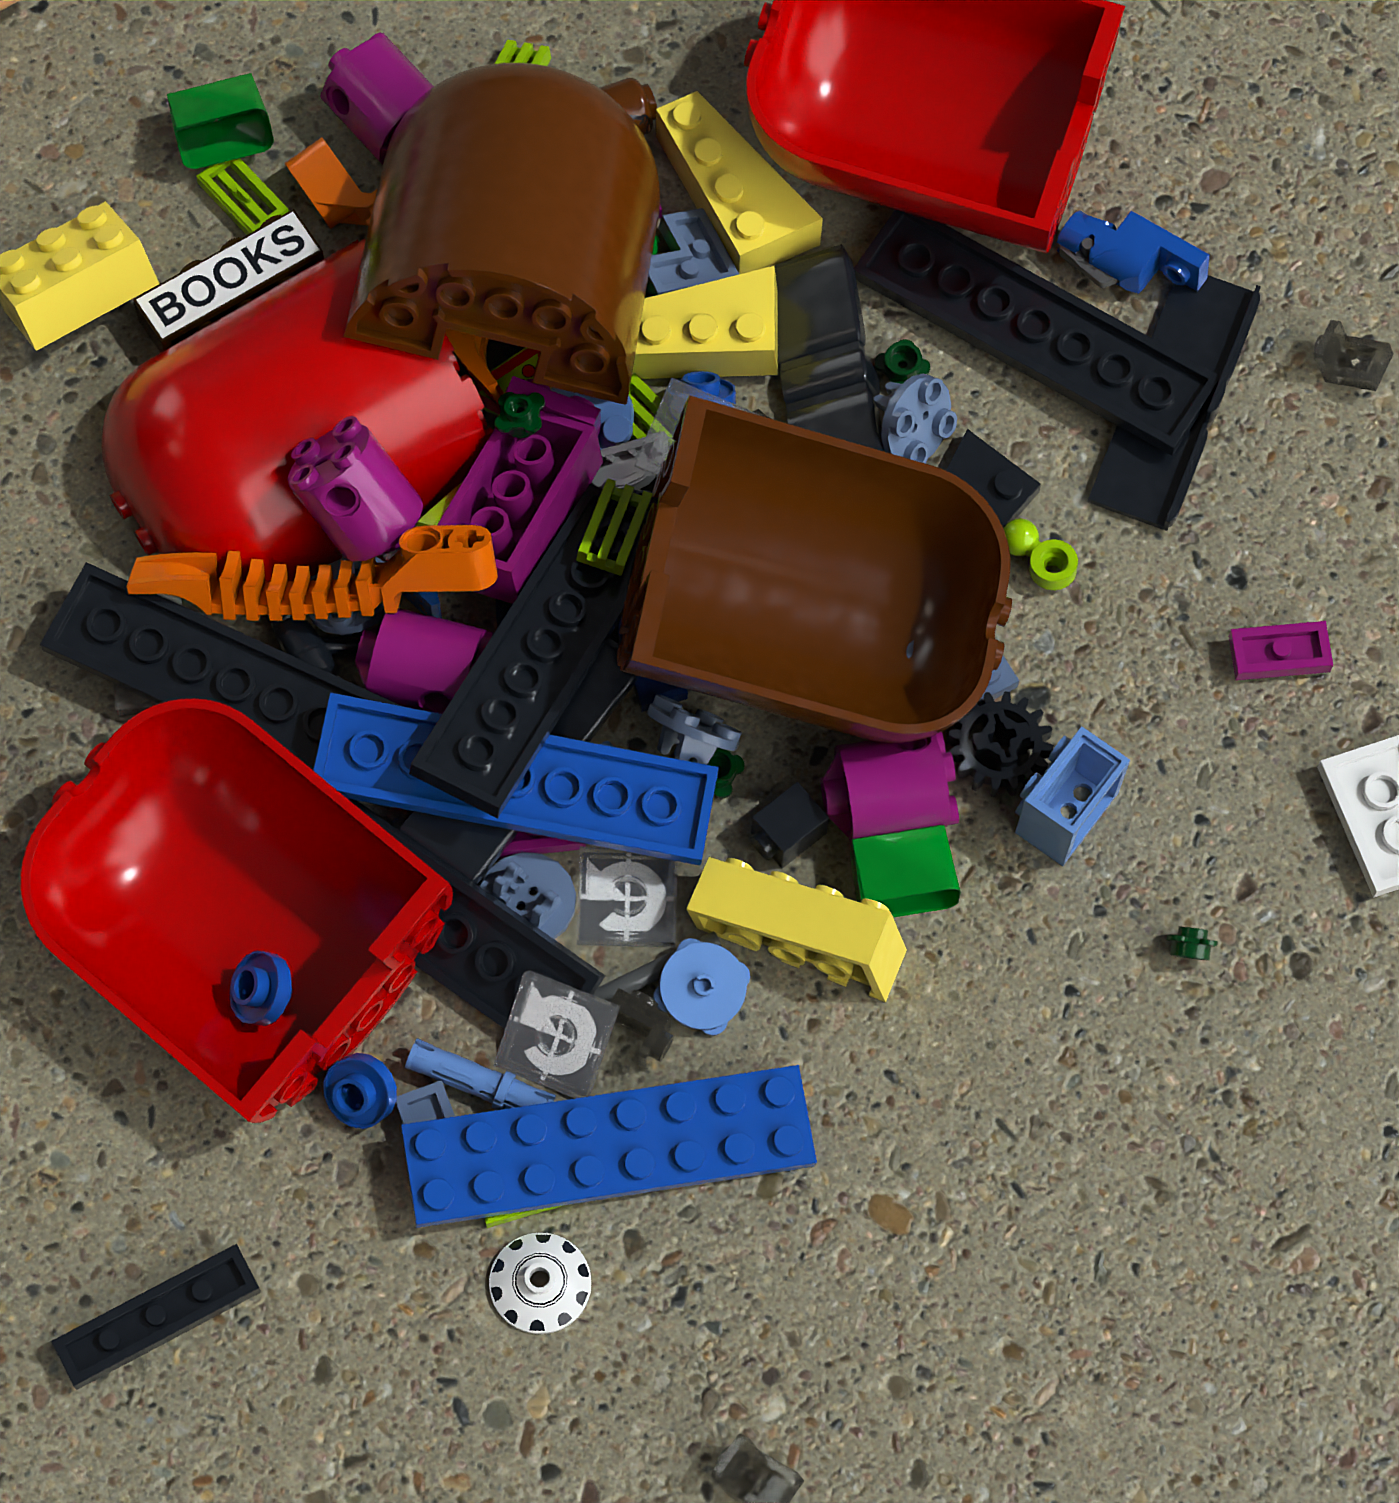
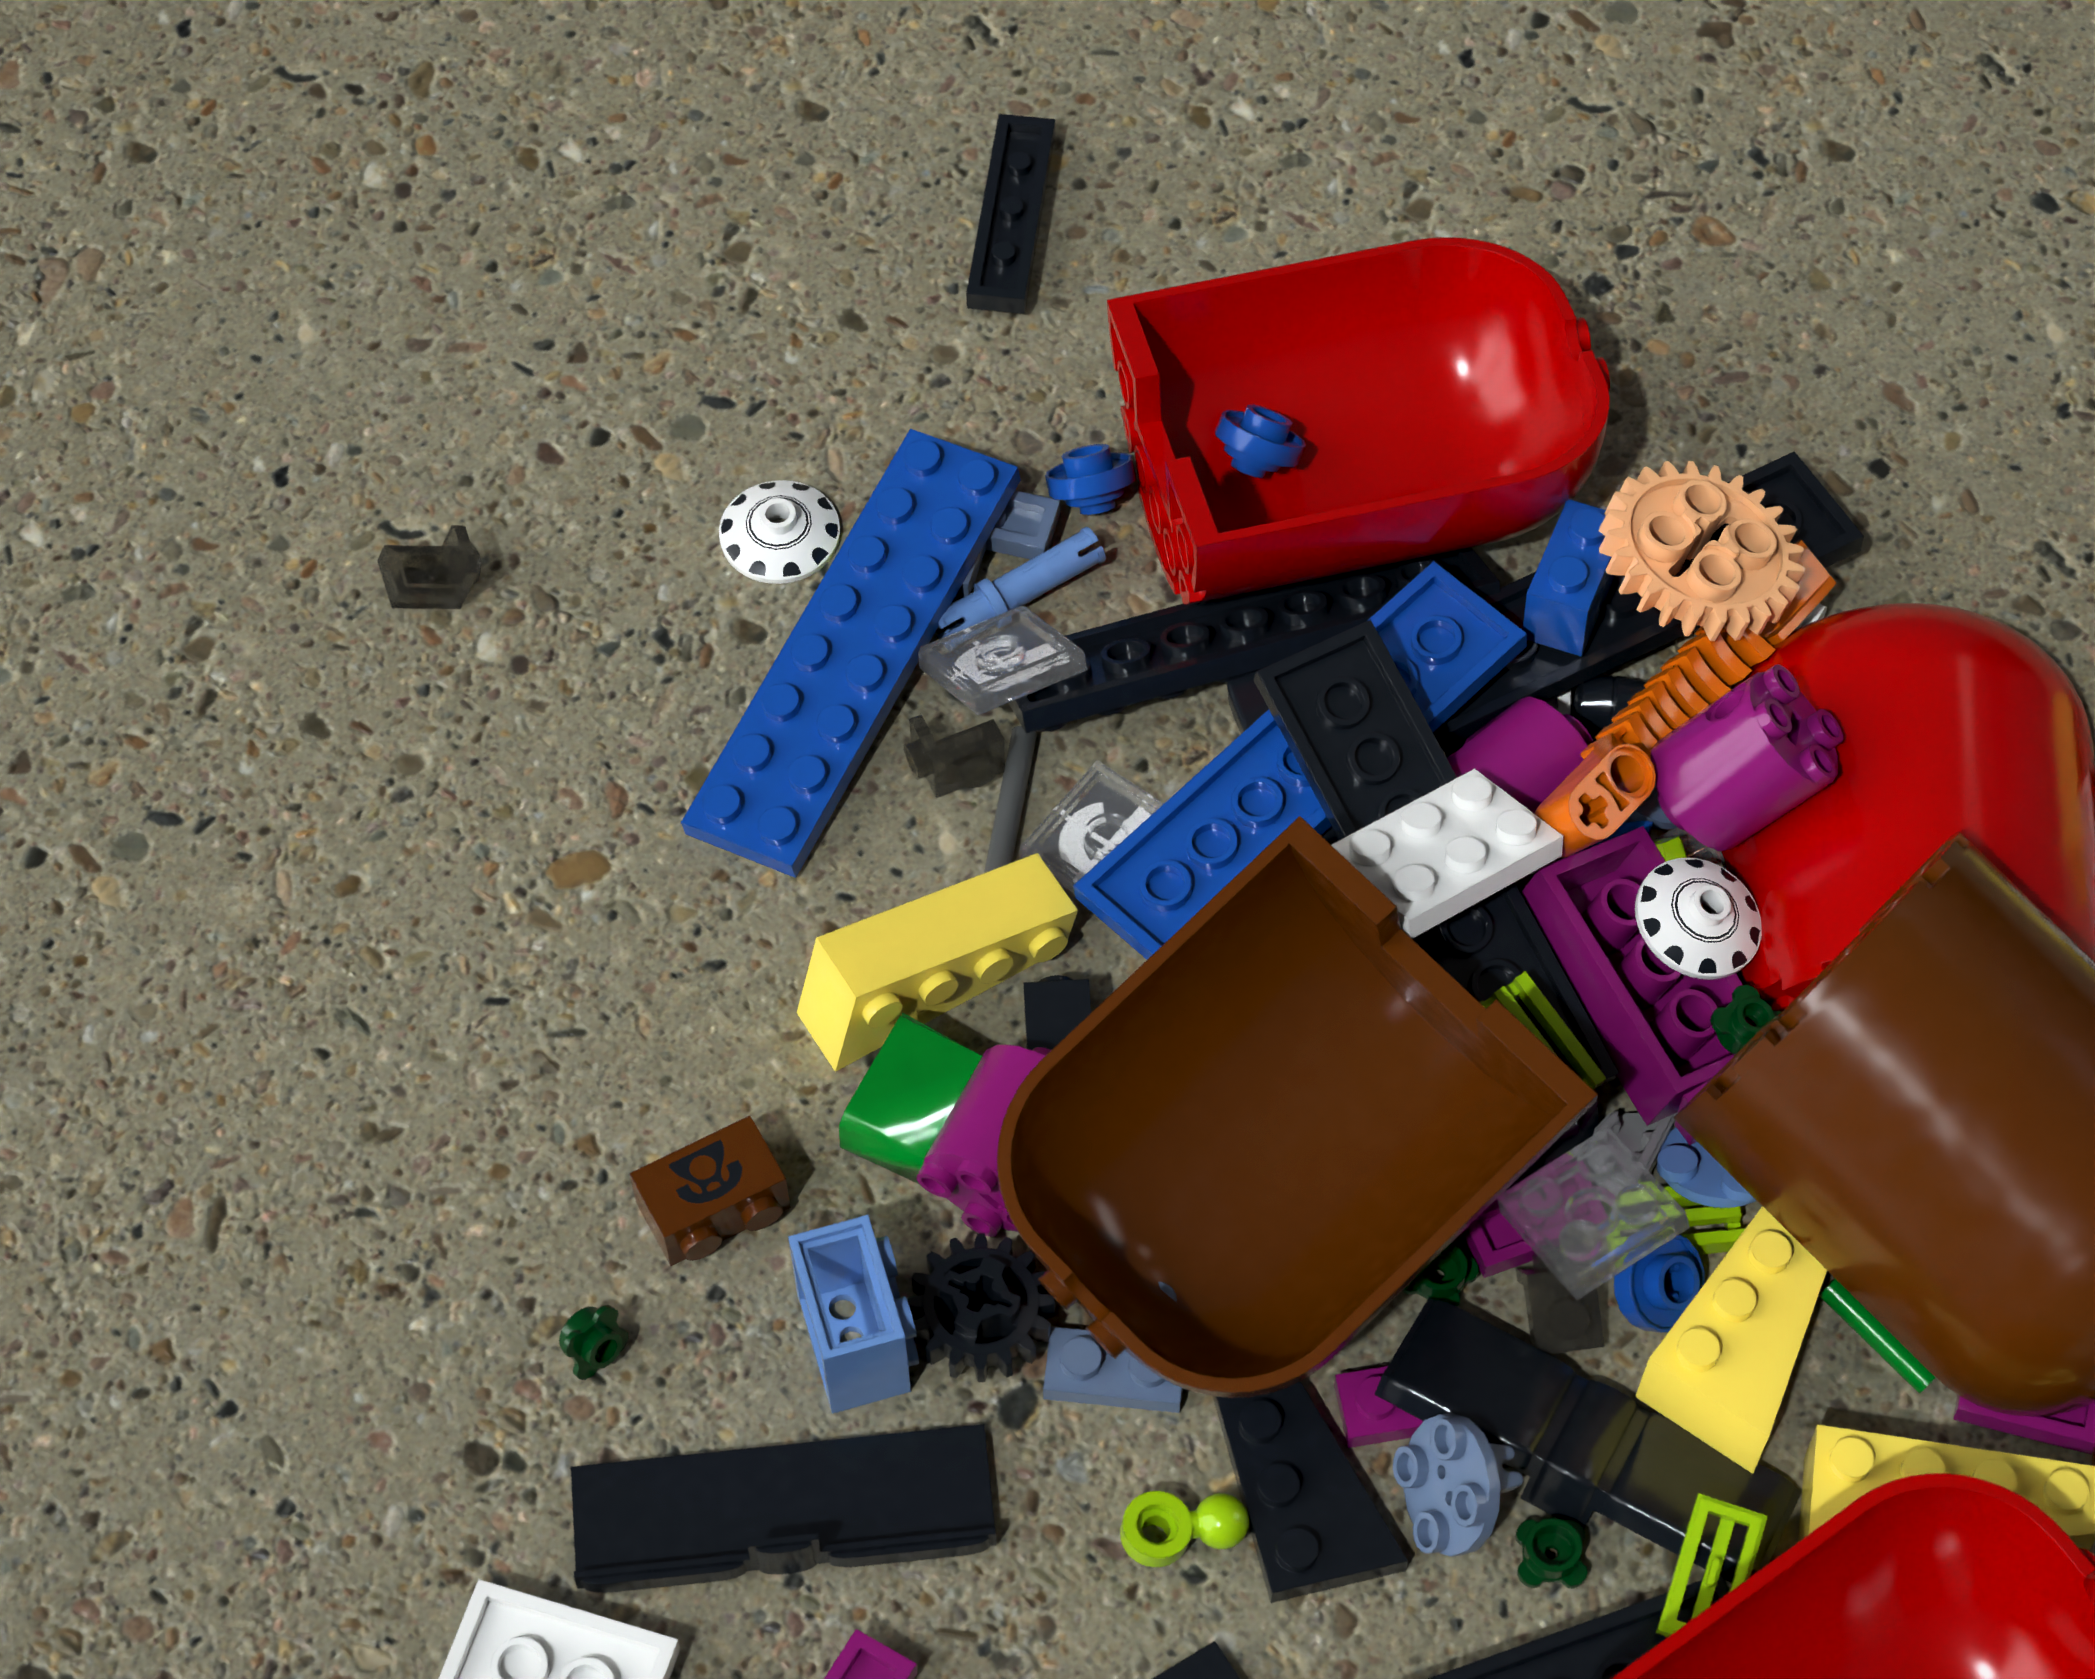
camera: 130 degrees right, 10 degrees down
(200, 614) = (1732, 581): none -> light nougat gear
(266, 691) = (1569, 582): none -> blue brick
(465, 496) = (1687, 935): none -> white dish
(519, 874) = (1150, 752): sand blue plate -> none
(555, 615) = (1450, 850): none -> white plate
(694, 257) = (1842, 1383): sand blue plate -> none
(702, 986) = (951, 836): medium blue piece -> none
(869, 269) = (1728, 1516): none -> lime tile
(1050, 946) = (711, 1191): none -> reddish brown brick
(1199, 773) = (782, 1509): none -> black piece

